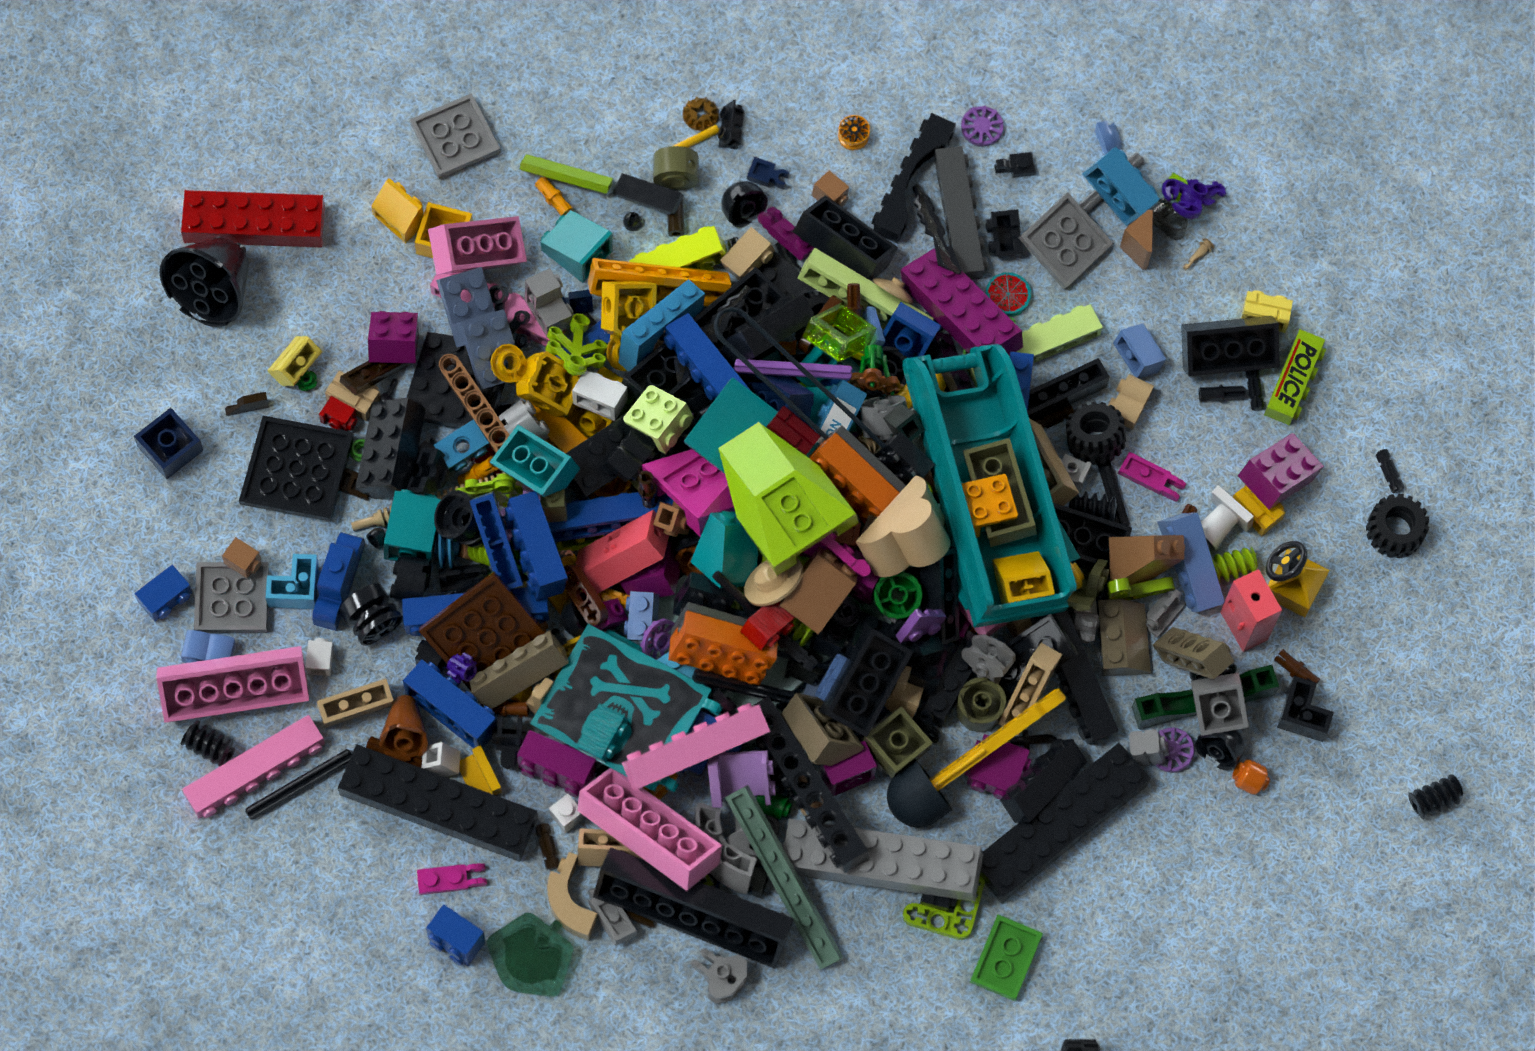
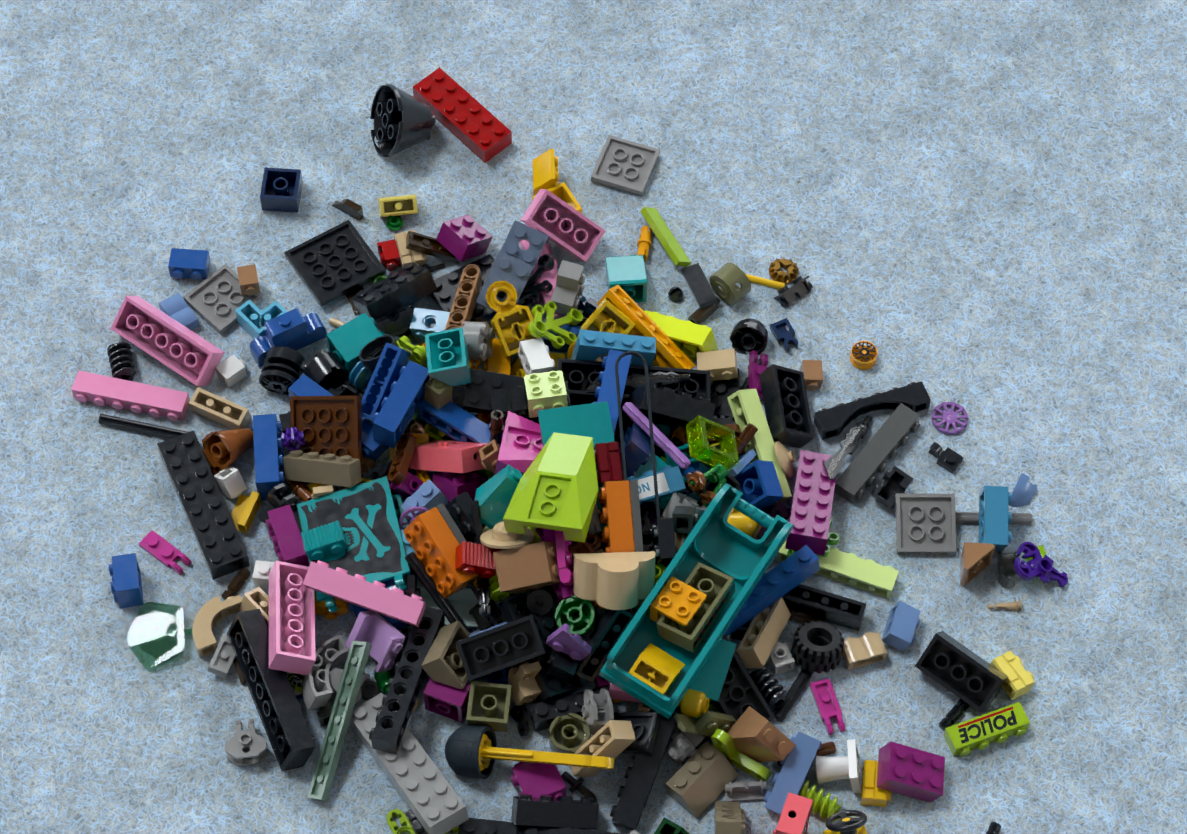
camera: 50 degrees right, 10 degrees down
(1009, 293) = (857, 525): red tile -> none
(1221, 393) = (928, 697): black axle -> none

